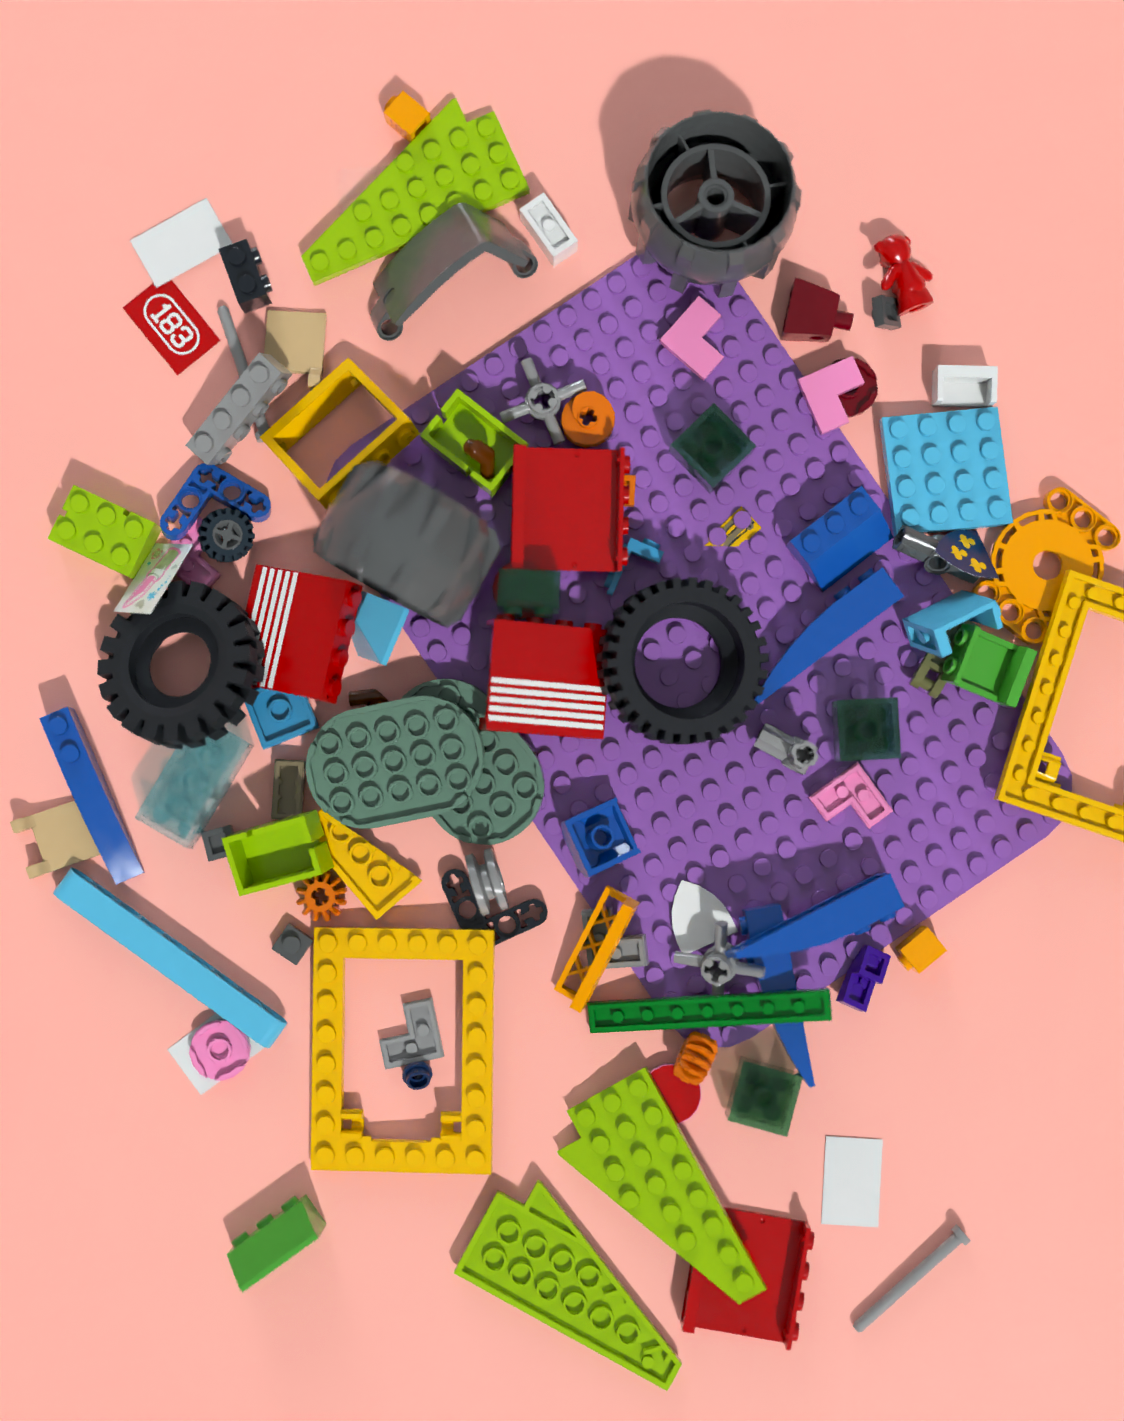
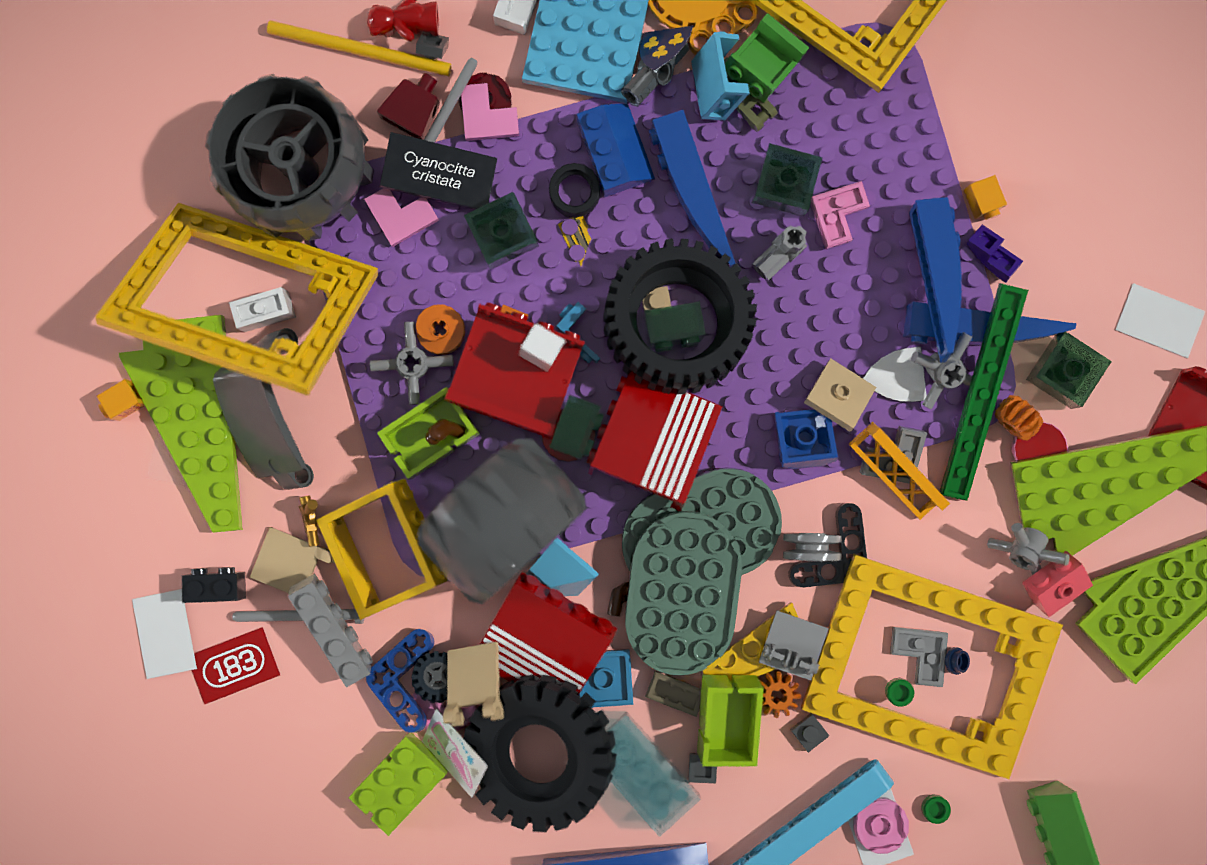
camera: 75 degrees left, 0 degrees up
(232, 572) = (472, 682): none -> tan flag
(255, 1103) = (936, 809): none -> green tile
(356, 345) = (308, 509): none -> pearl gold piece
(364, 1023) = (899, 692): none -> green tile
(377, 895) = (793, 645): none -> light grey hinge
(500, 286) = (341, 279): none -> yellow plate
(530, 1145) = (1057, 585): none -> coral brick
(558, 1111) = (1028, 549): none -> light grey bar
(600, 526) = (541, 347): none -> white panel
(657, 860) = (840, 395): none -> tan plate
(670, 660) = (674, 326): none -> clear green brick
(691, 637) = (657, 299): none -> tan plate
(752, 362) = (437, 171): none -> black tile
(781, 488) = (580, 170): none -> black tyre
(810, 347) = (451, 100): none -> light grey bar
(858, 238) = (359, 48): none -> yellow piece

